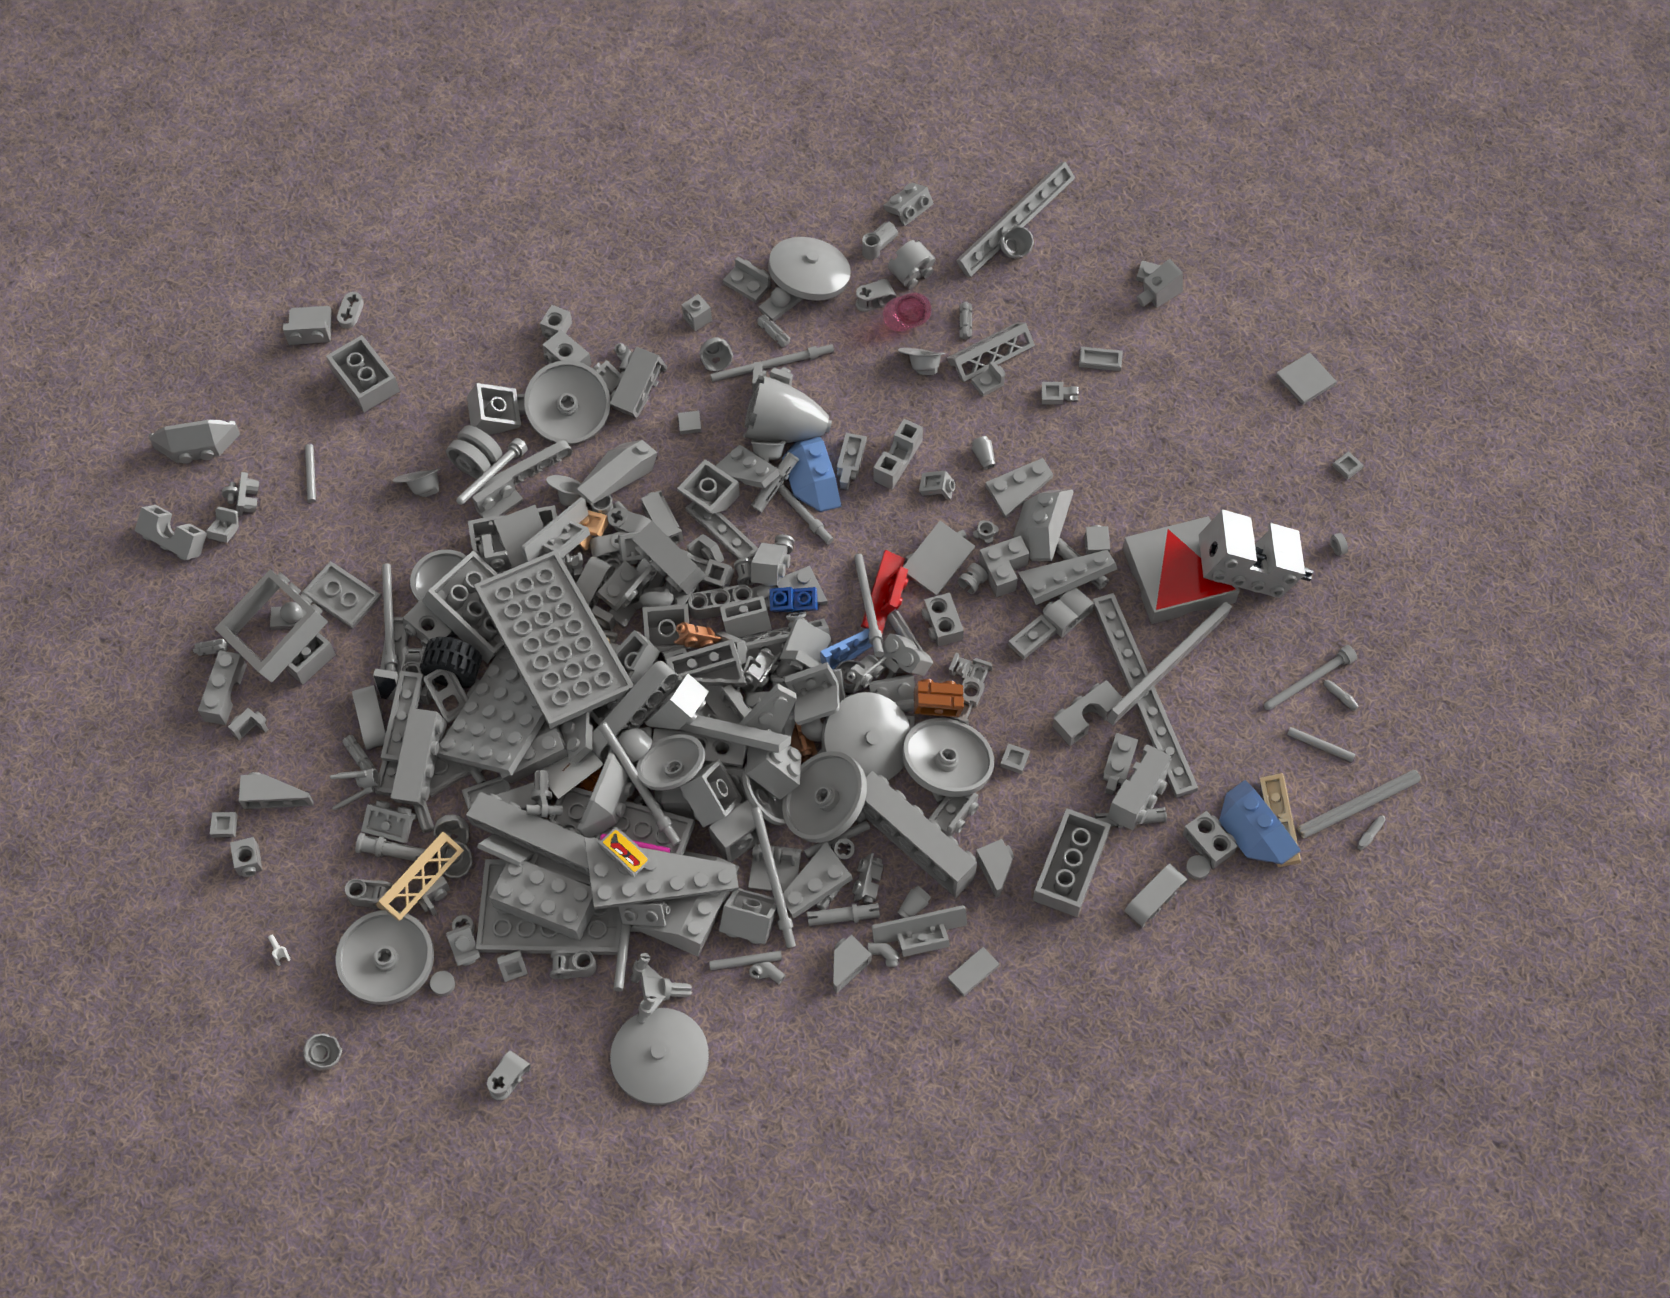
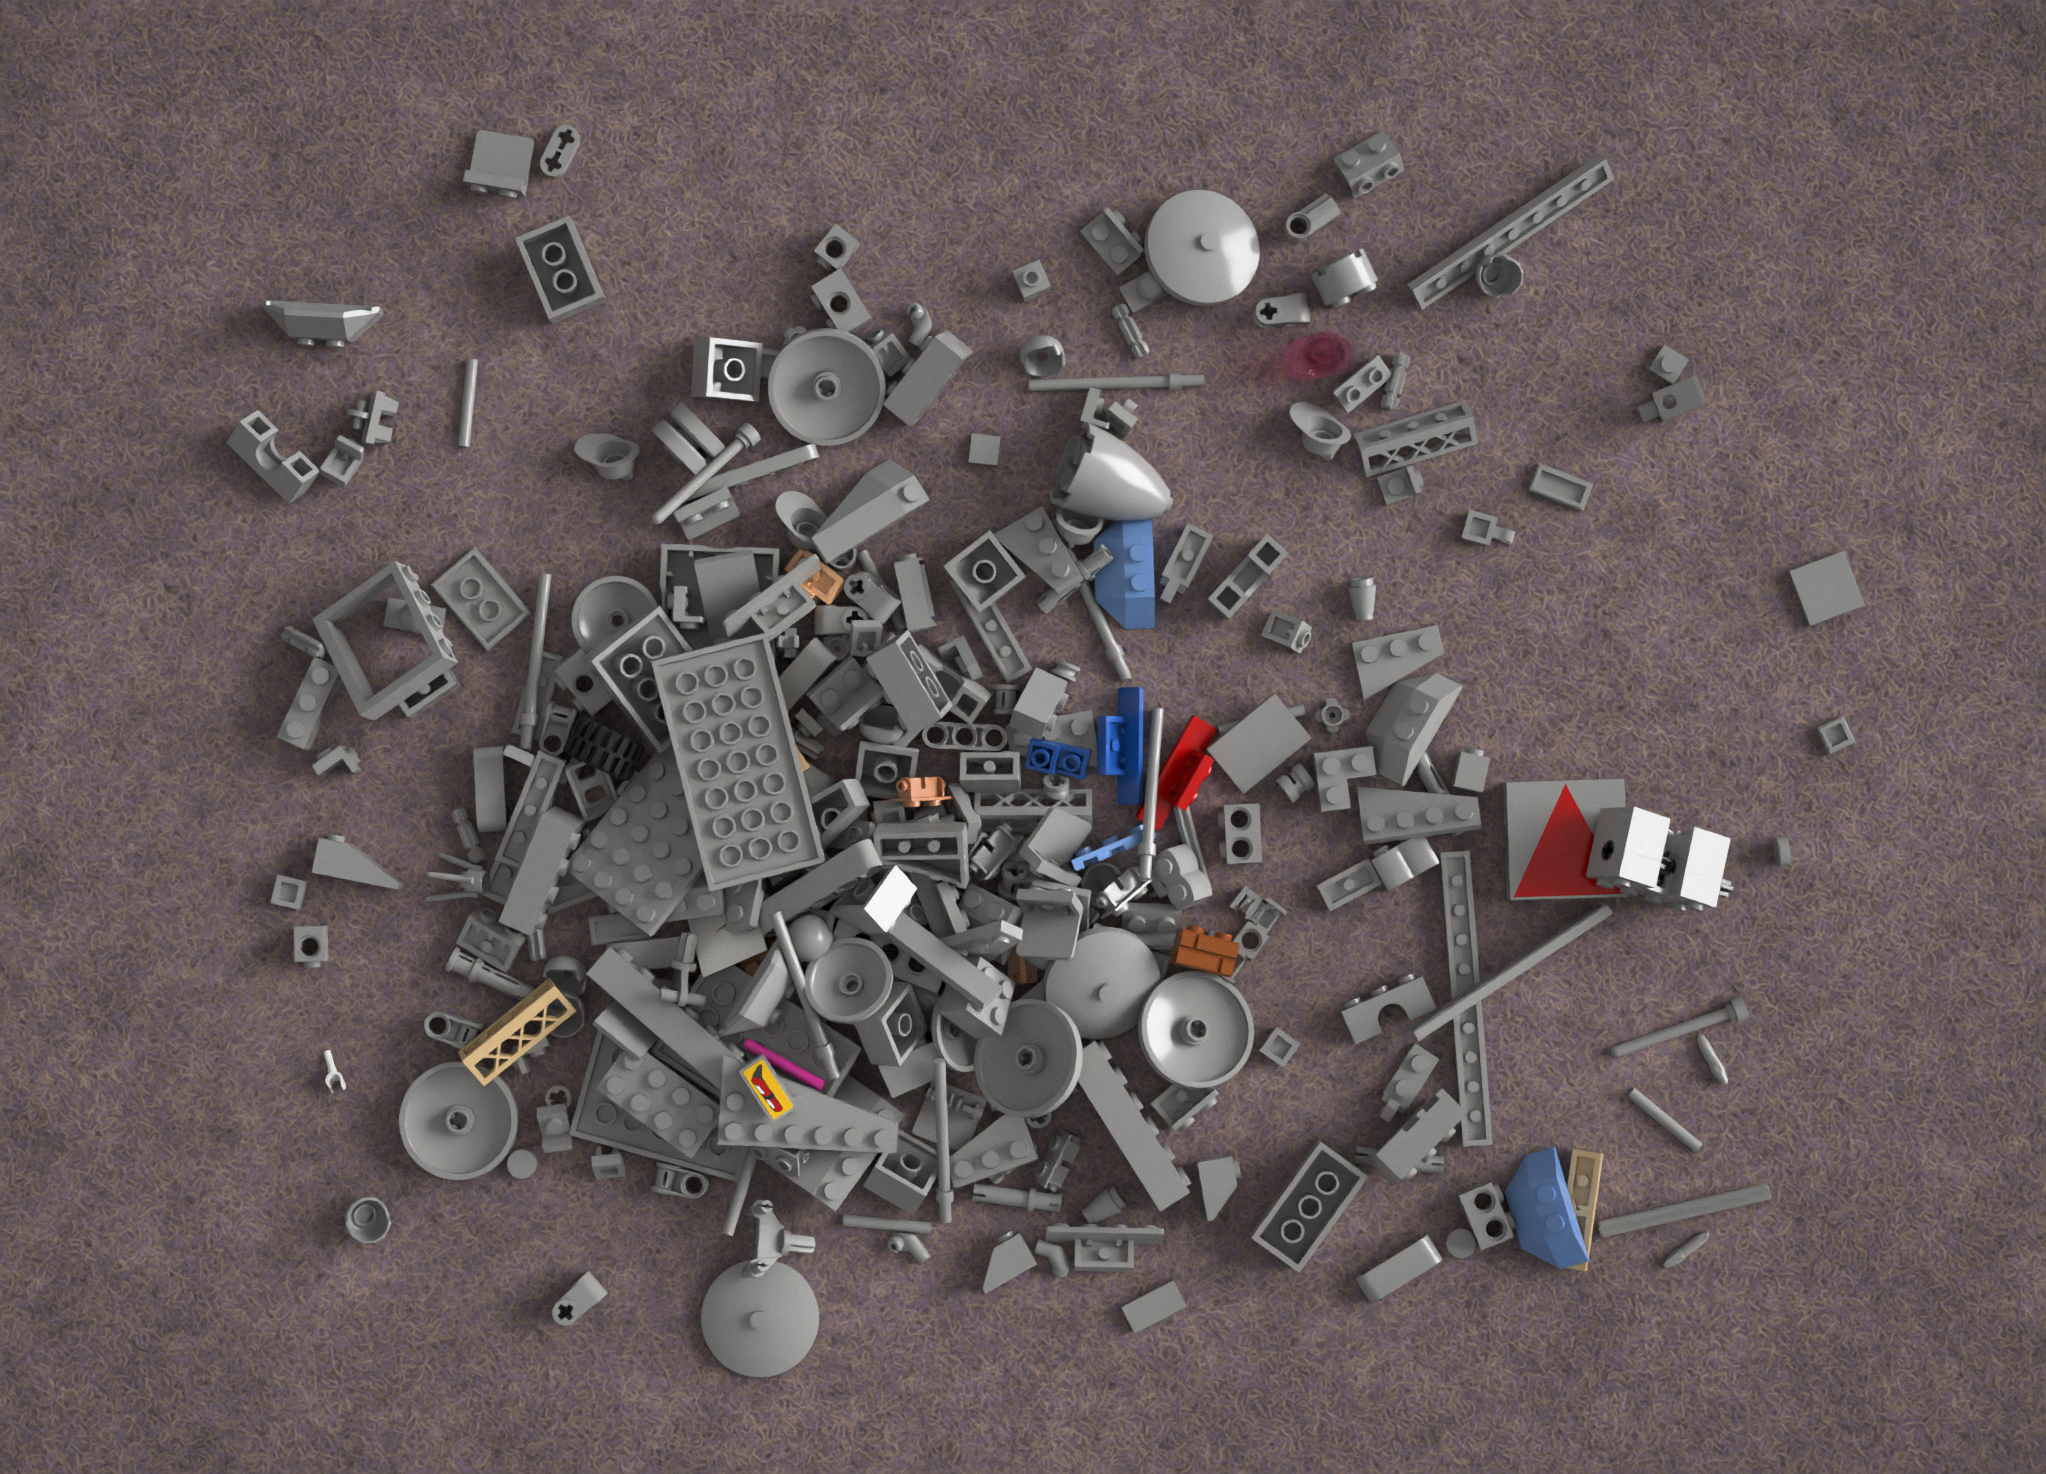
camera: 10 degrees right, 25 degrees up
(839, 583) = (1122, 746): none -> blue bracket
(942, 324) = (1362, 383): none -> light grey hinge

